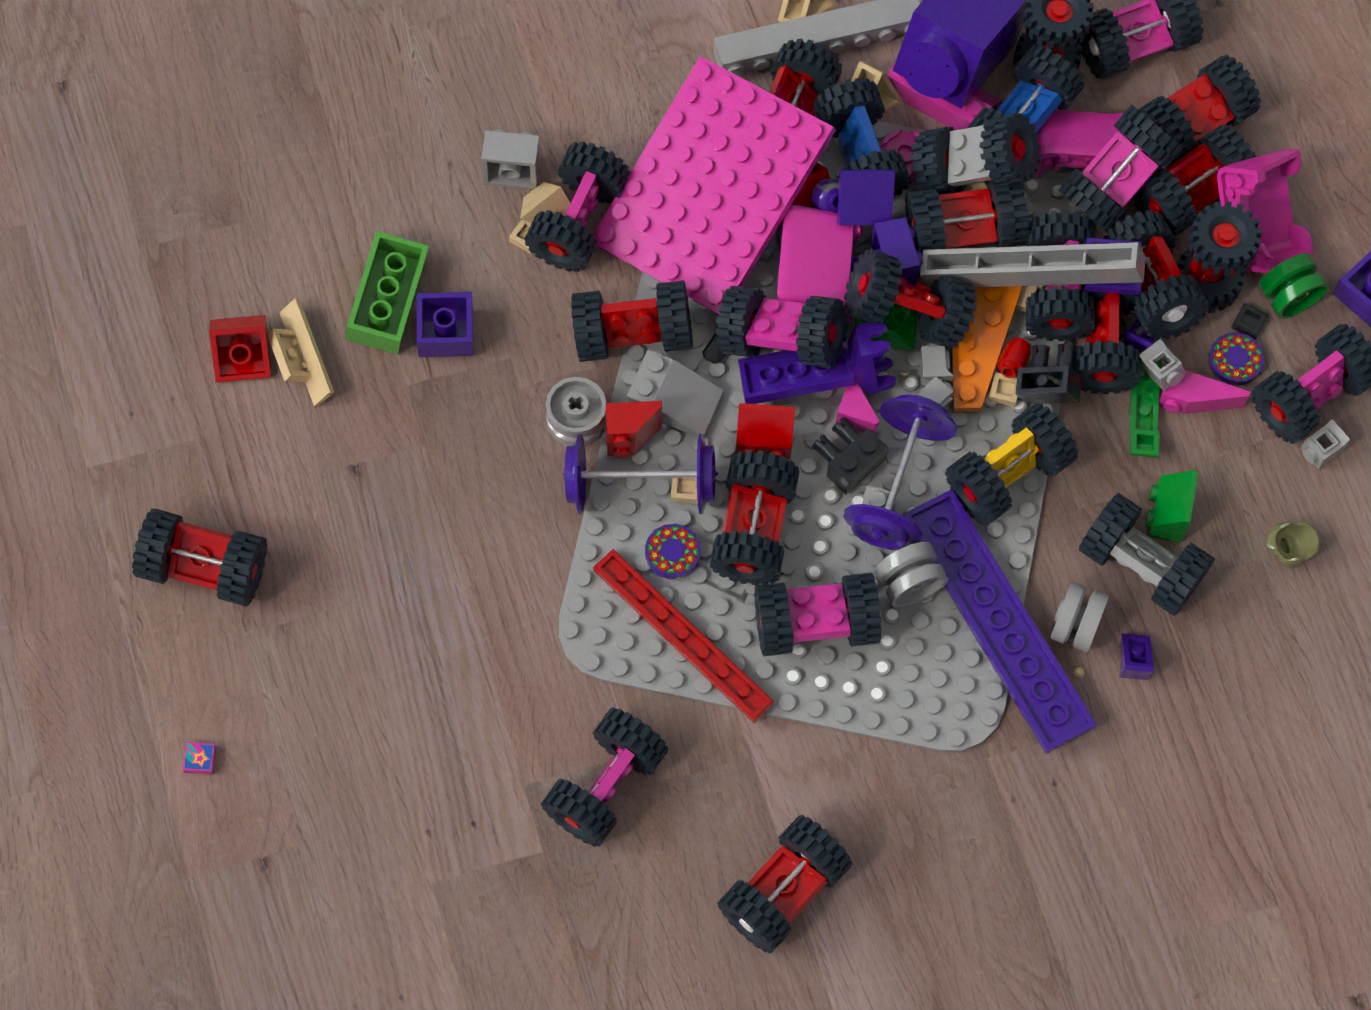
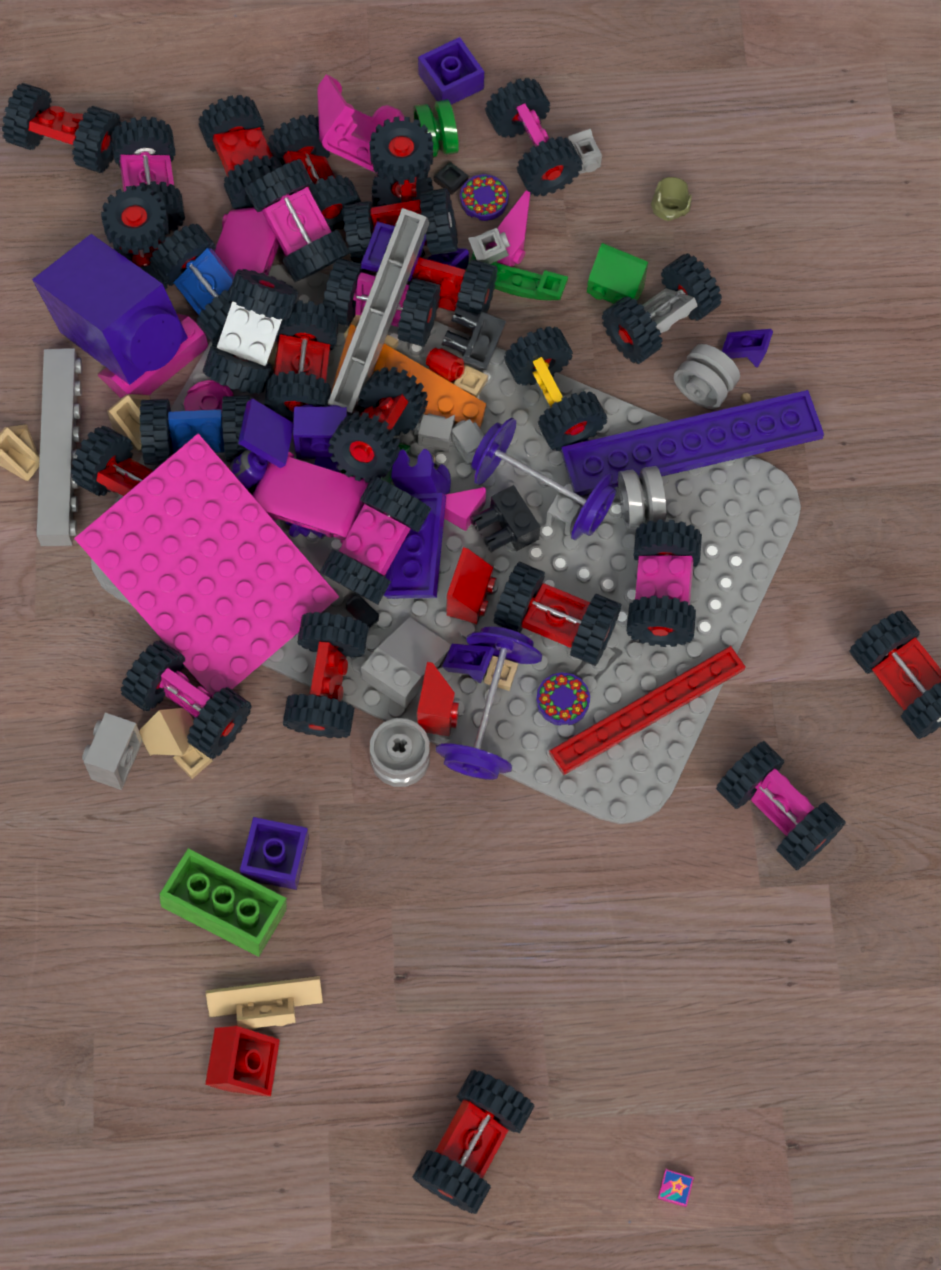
camera: 75 degrees left, 0 degrees up
(684, 451) = (468, 660): none -> dark purple slope

